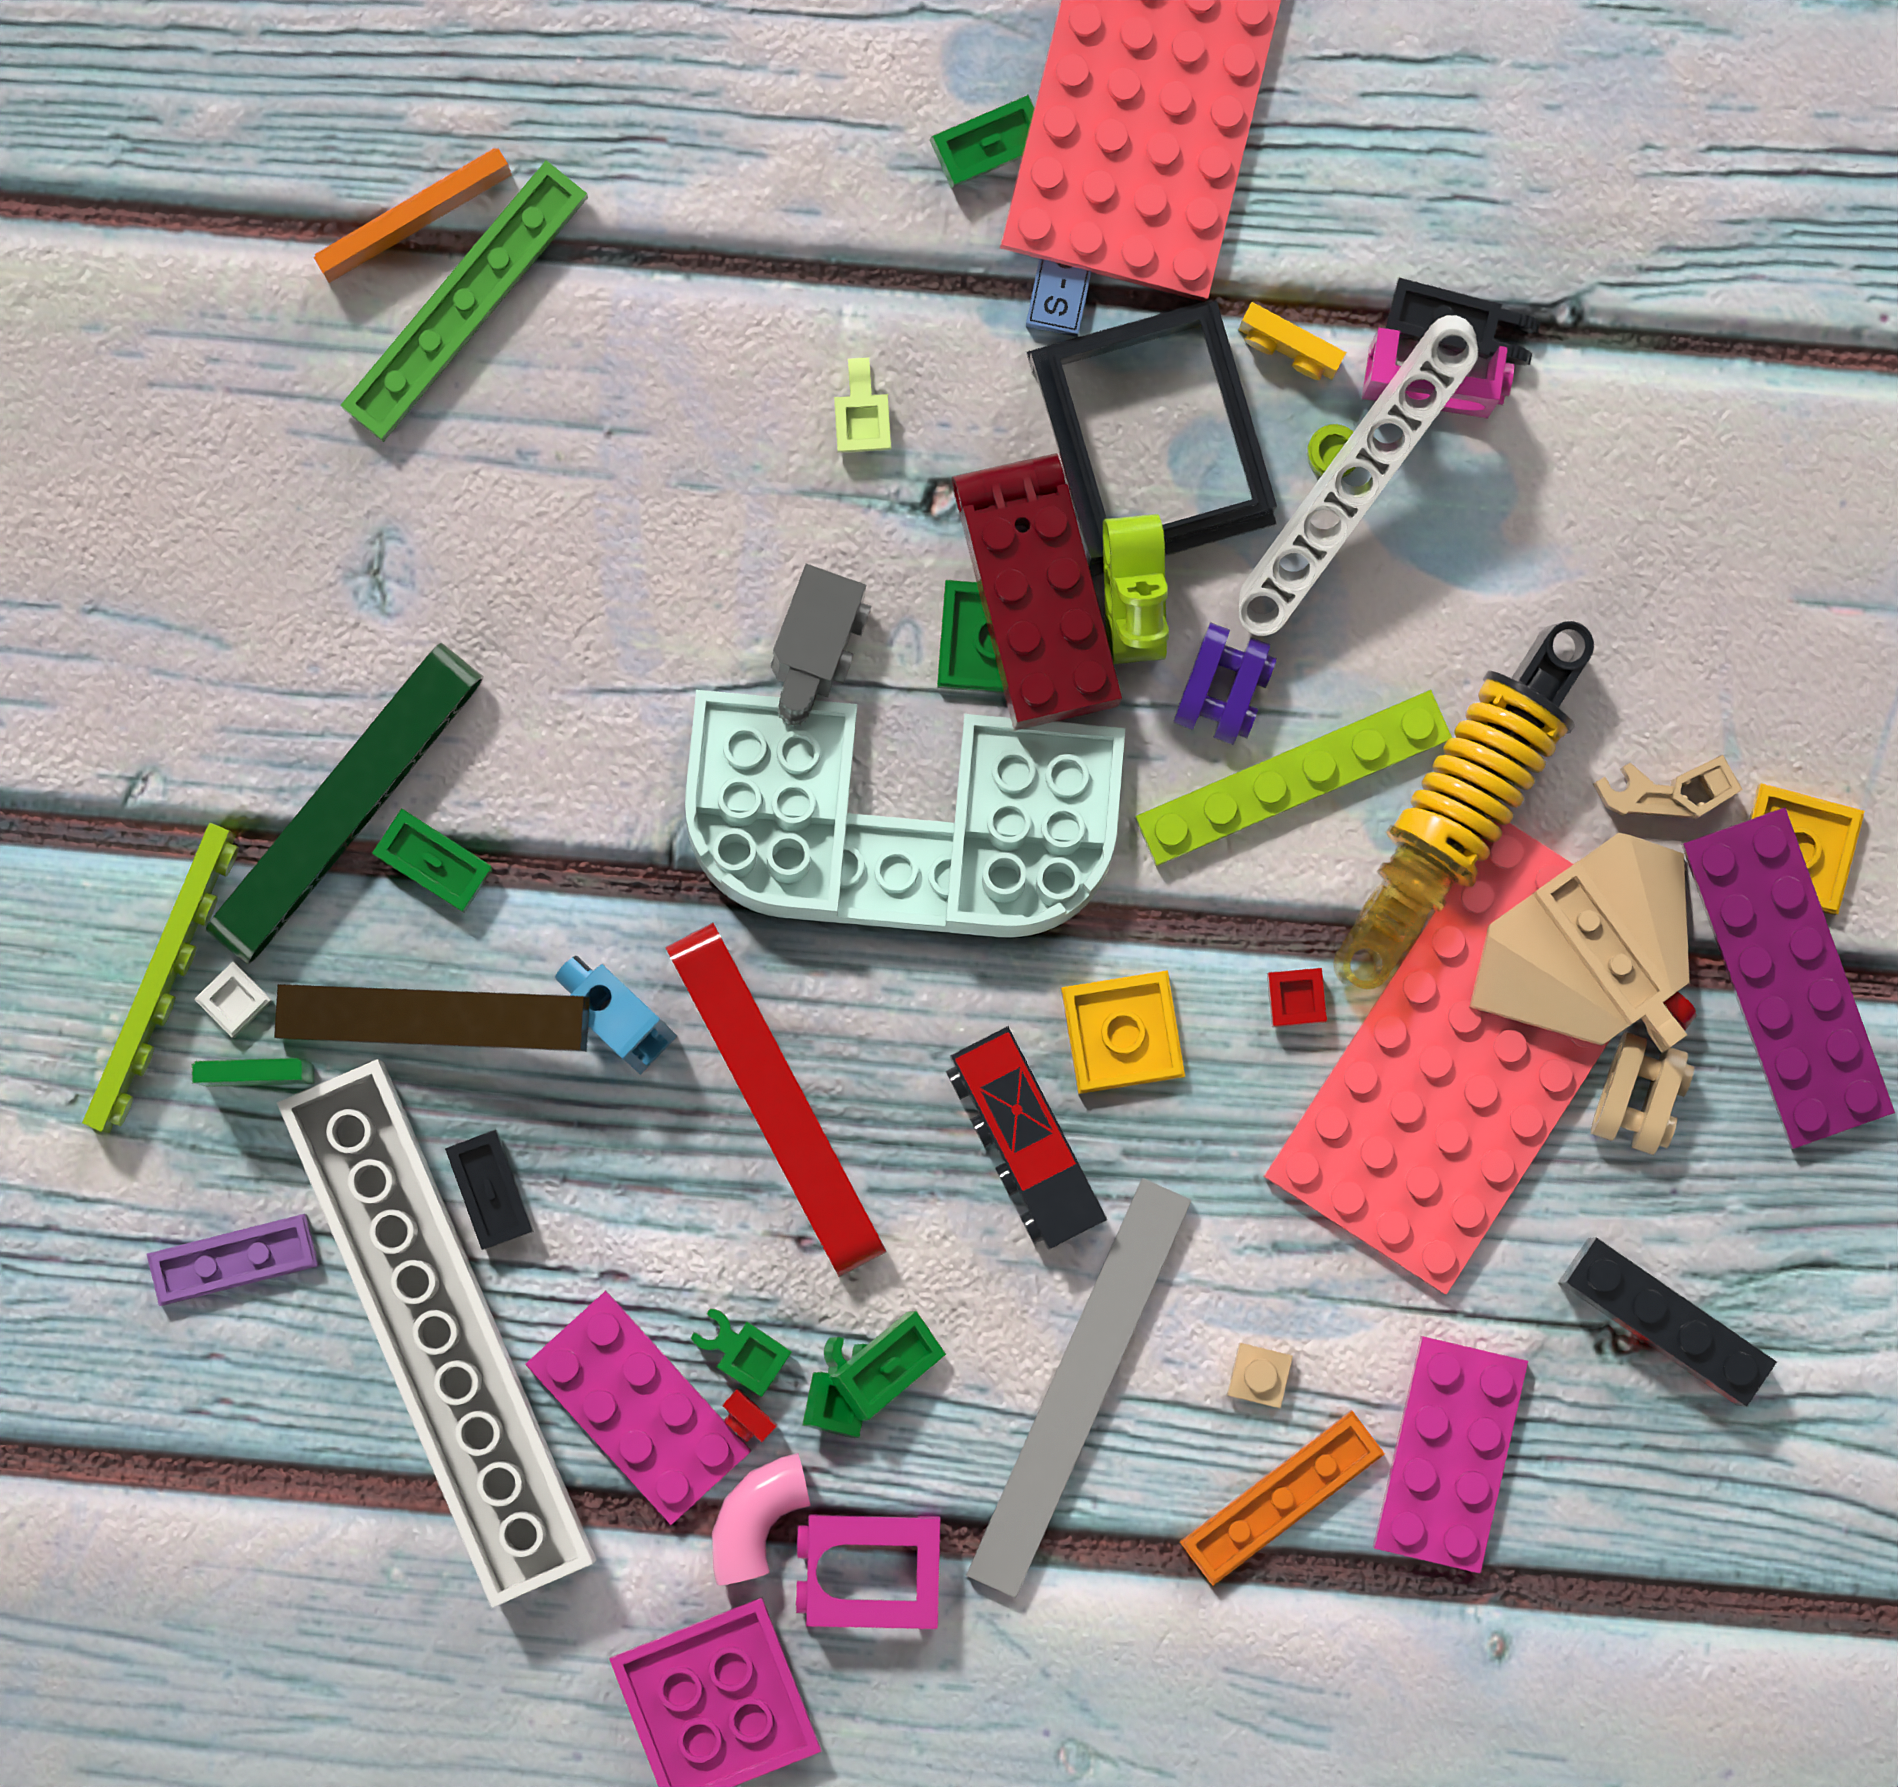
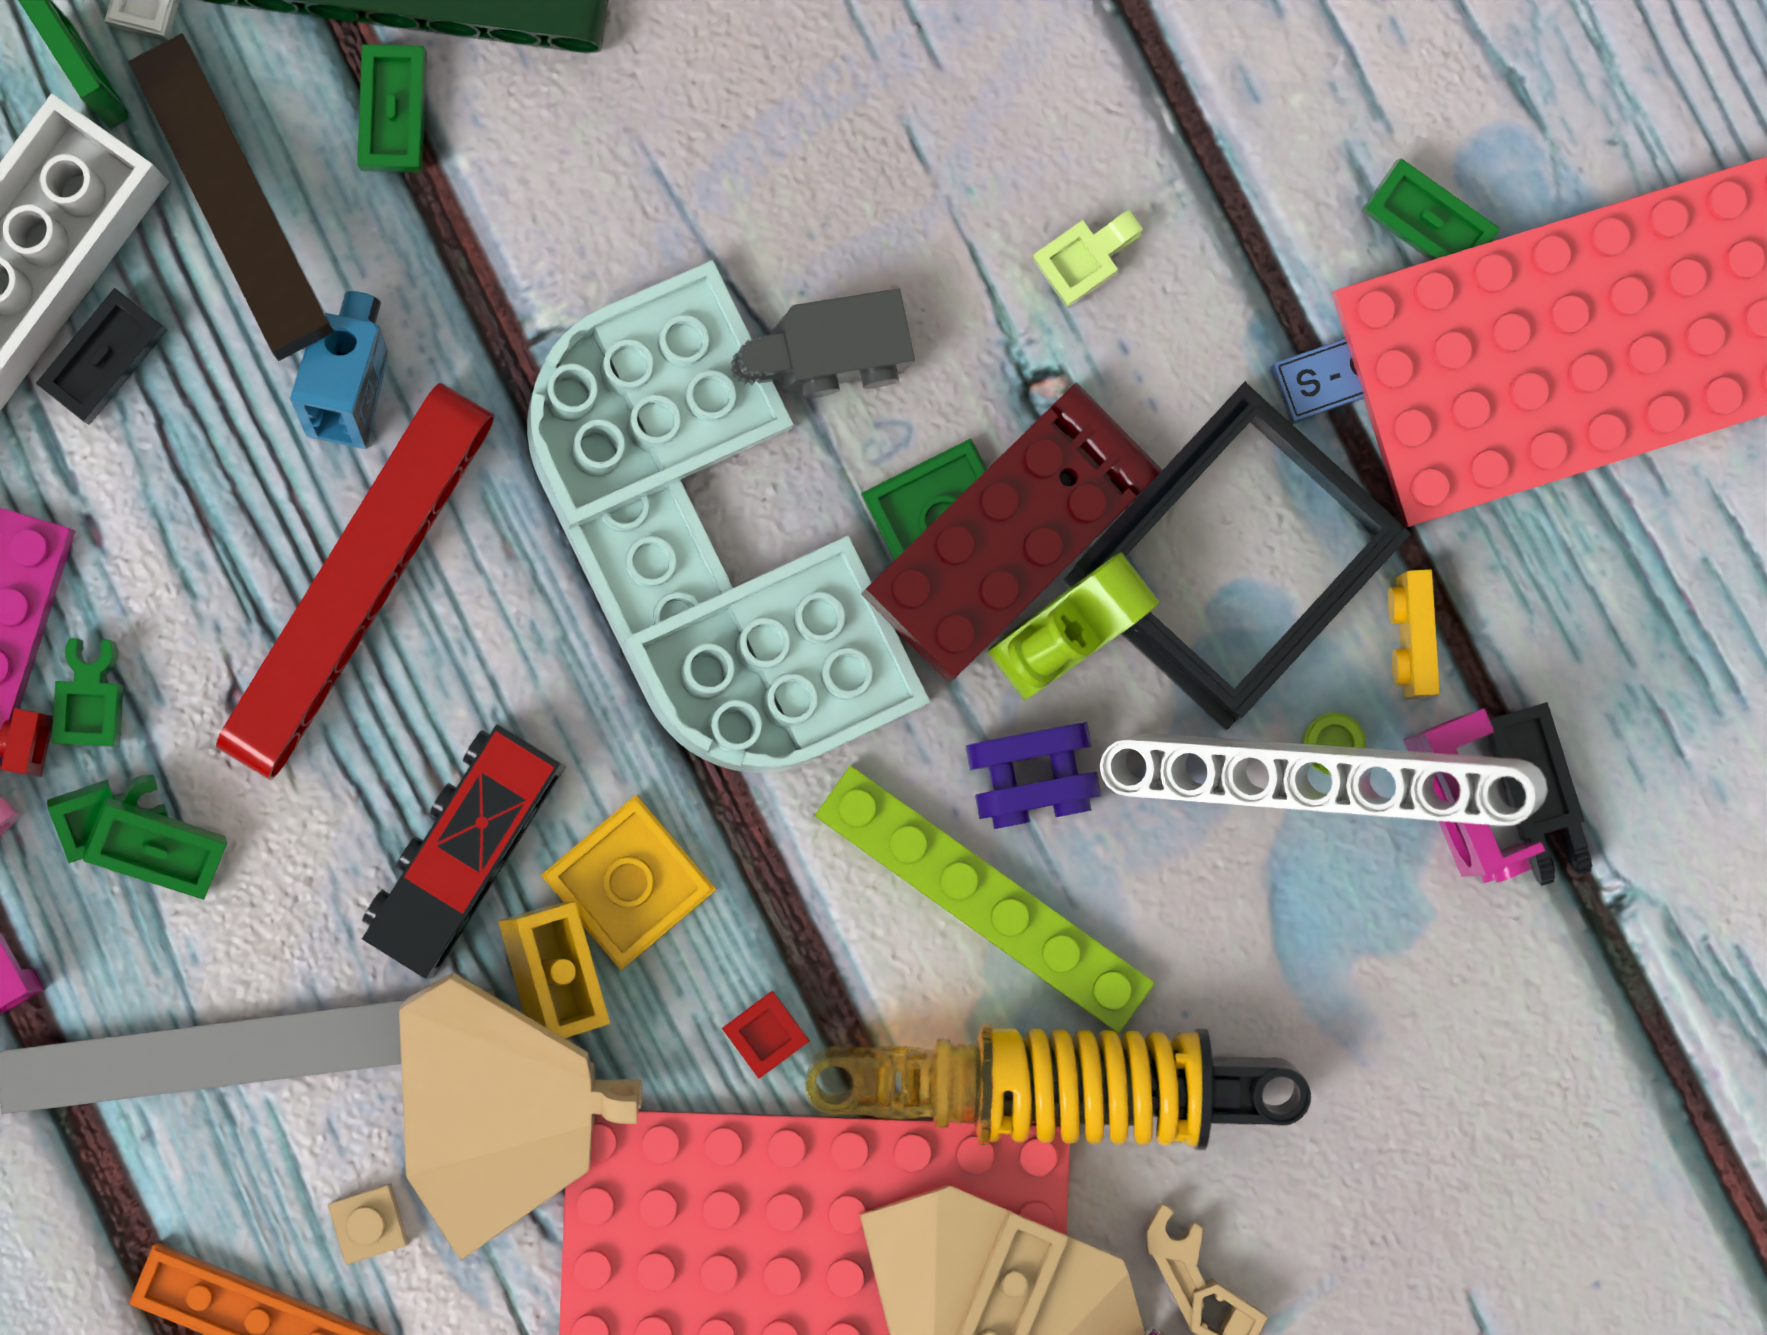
camera: 60 degrees right, 0 degrees up
(1158, 1123) = (554, 969): none -> yellow brick
(1234, 1226) = (495, 1110): none -> tan panel

